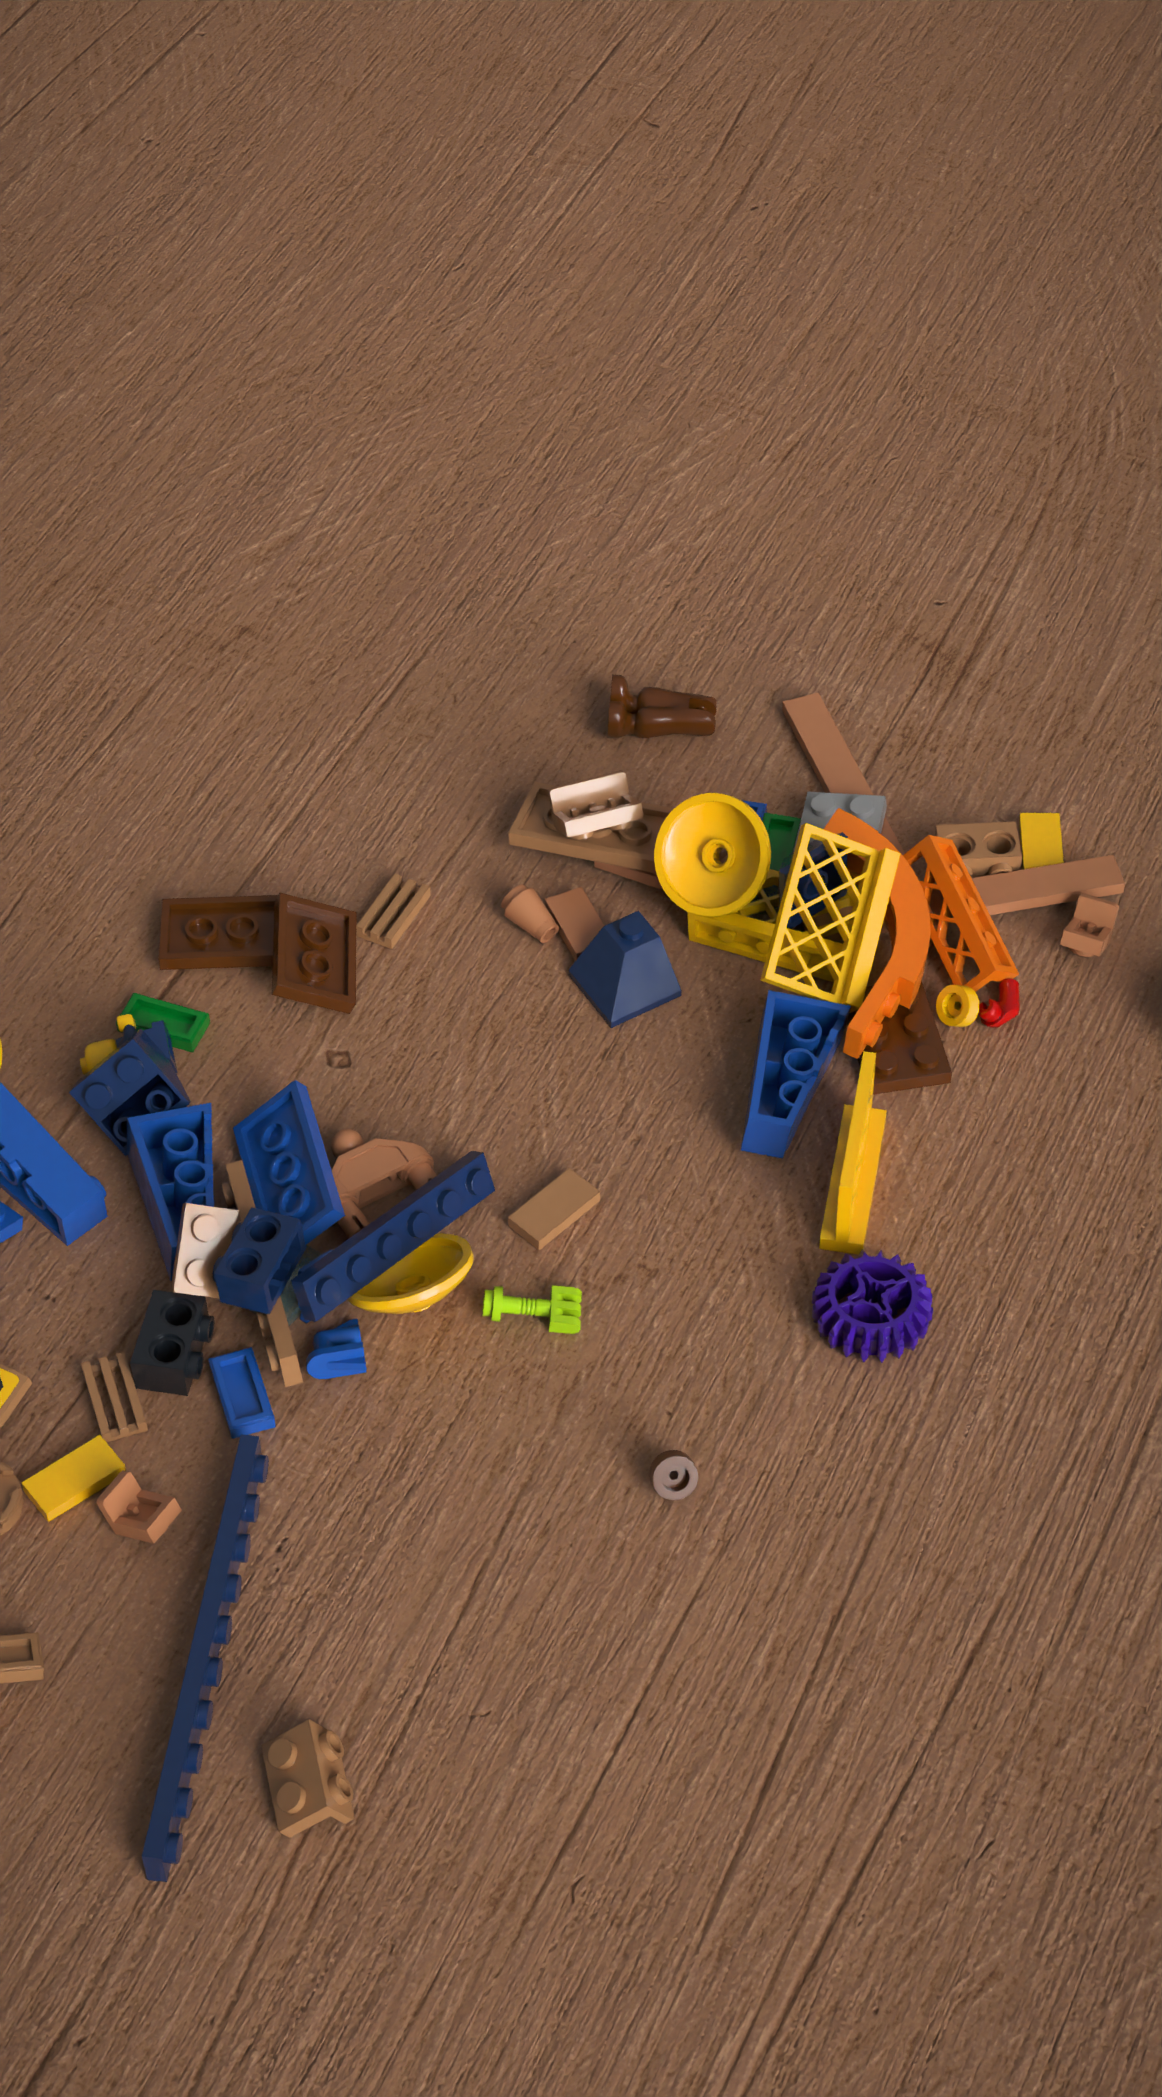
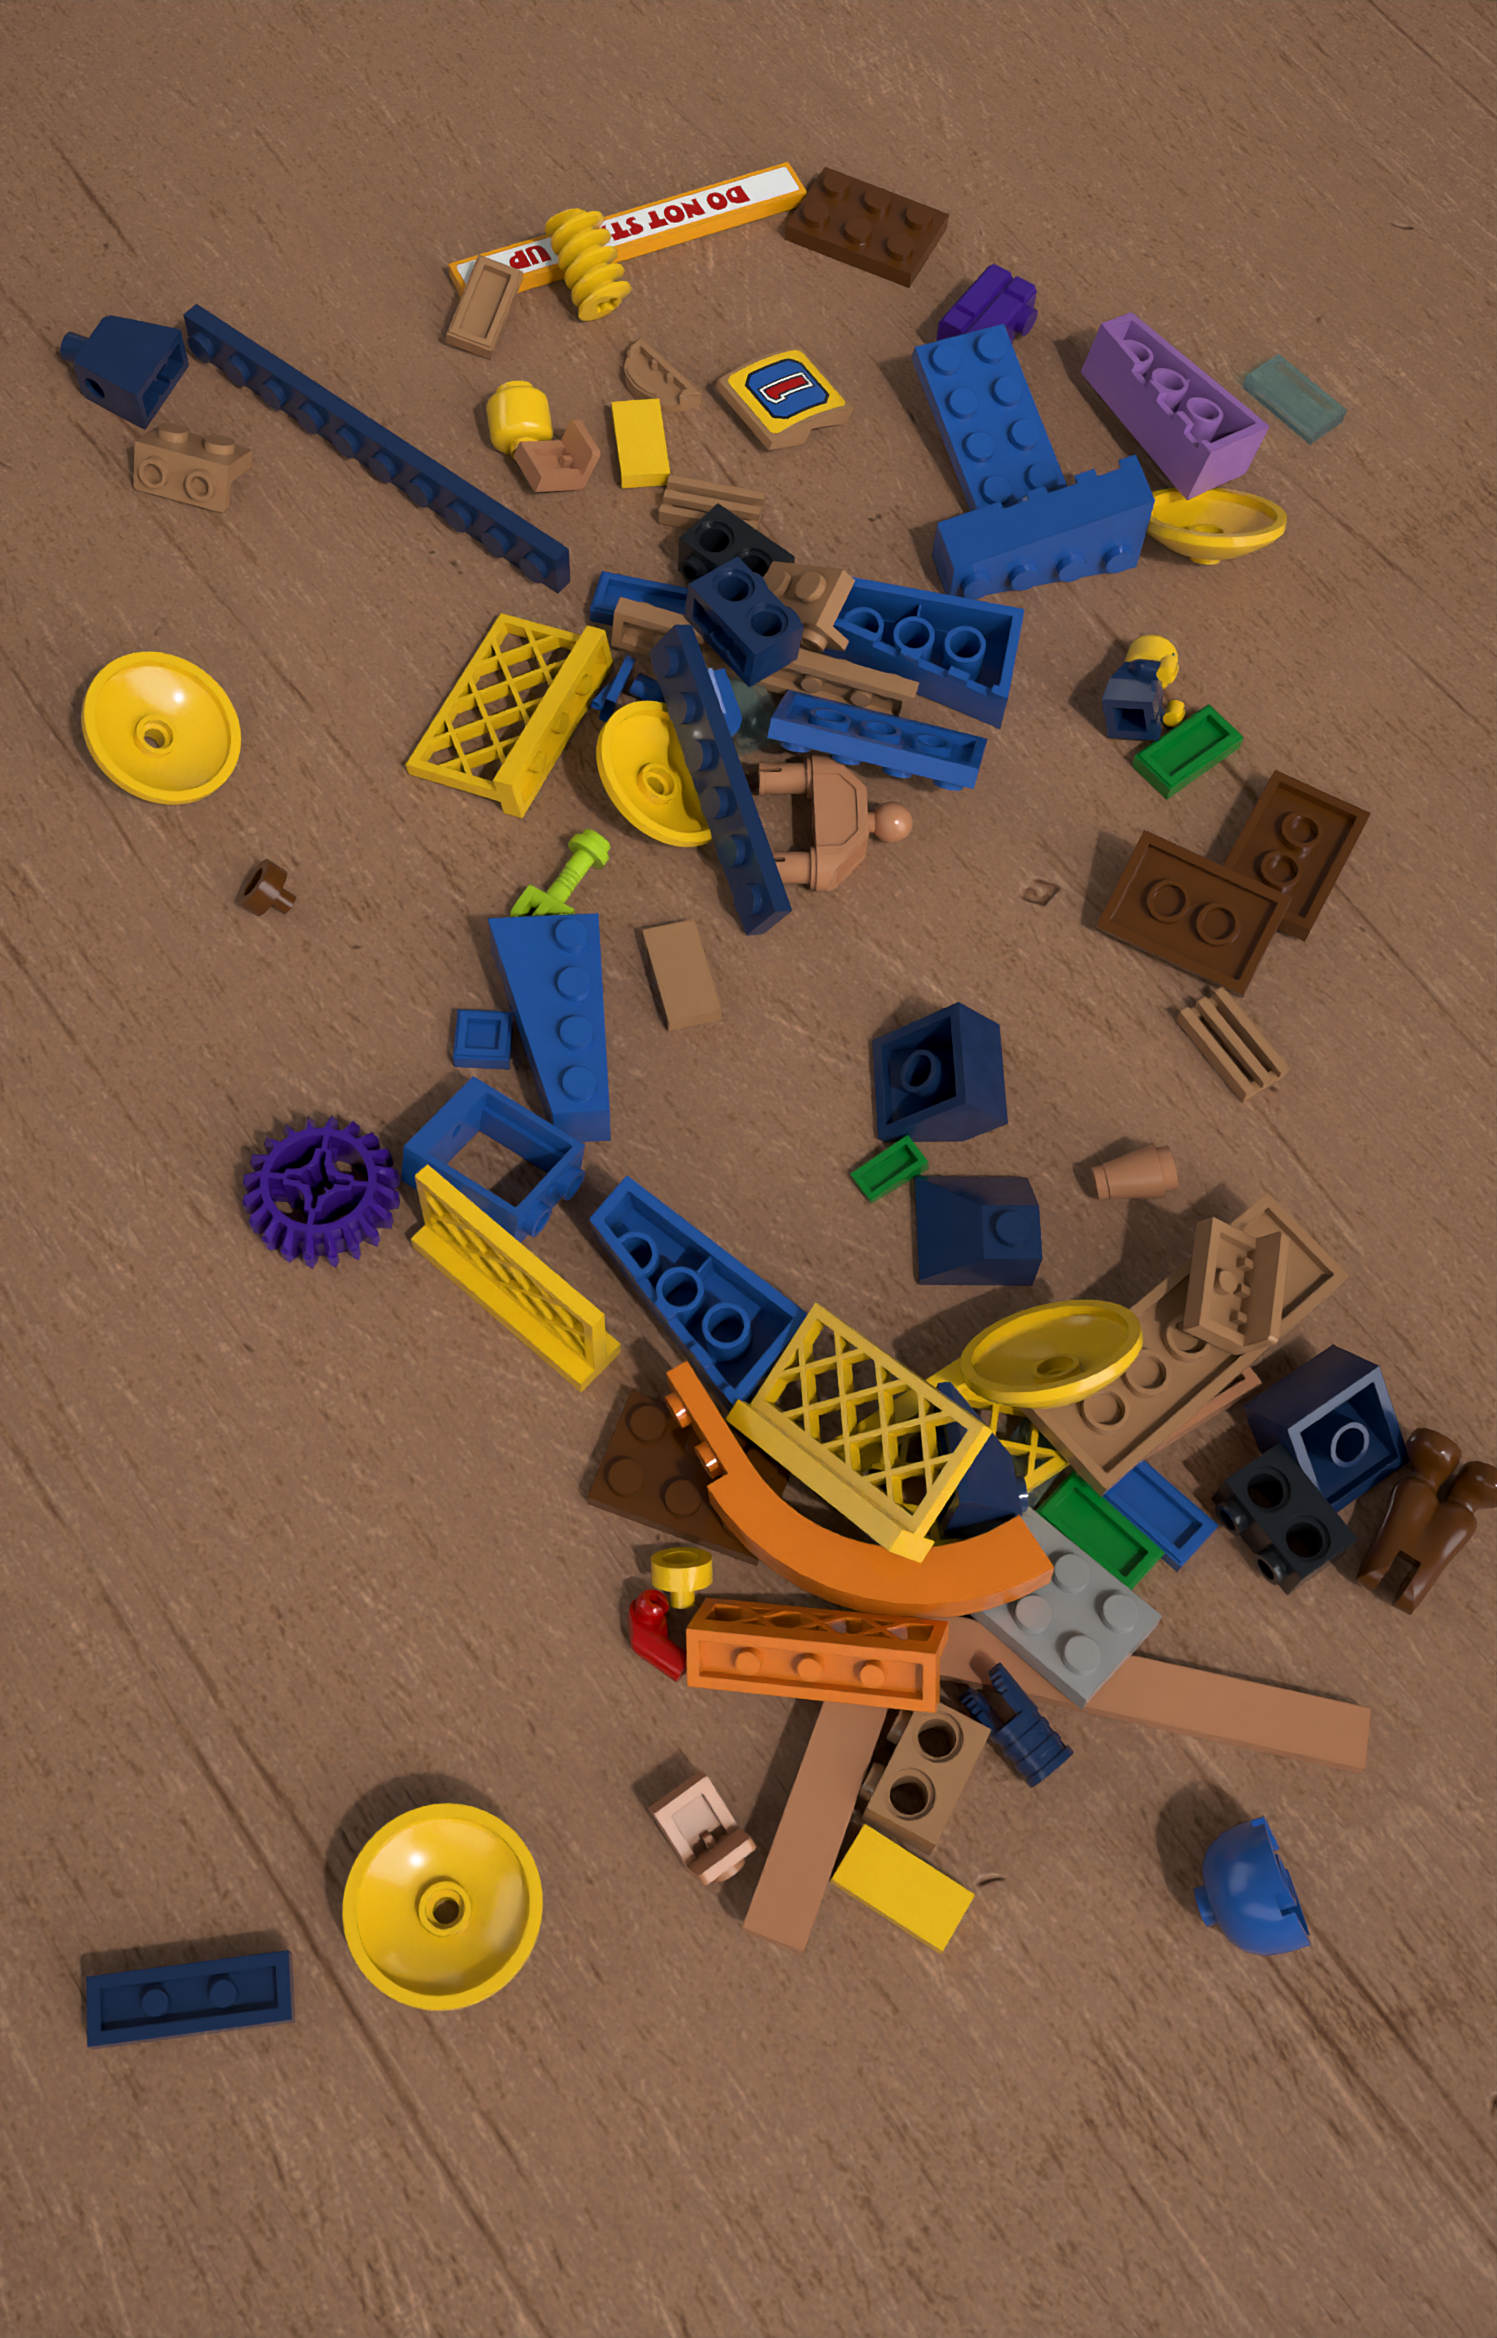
camera: 115 degrees right, 15 degrees up
(111, 1560) = (518, 414): none -> yellow head
(129, 1084) = (1080, 647): dark blue slope -> none
(235, 1892) = (127, 366): none -> dark blue torso
(389, 1382) = (551, 720): none -> yellow fence
(538, 1032) = (940, 1078): none -> dark blue slope
(576, 919) = (1096, 1227): nougat tile -> none
(594, 1606) = (177, 708): none -> yellow dish
(614, 1038) = (890, 1169): none -> green piece
(645, 1241) = (558, 1005): none -> blue wedge
(648, 772) = (1333, 1424): none -> dark blue slope
(687, 1292) = (483, 1039): none -> blue tile
(705, 764) = (1295, 1511): none -> black brick
(783, 1250) = (487, 1110): none -> blue window
(921, 820) = (1024, 1737): none -> dark blue hinge
(925, 702) = (1251, 1892): none -> blue cylinder

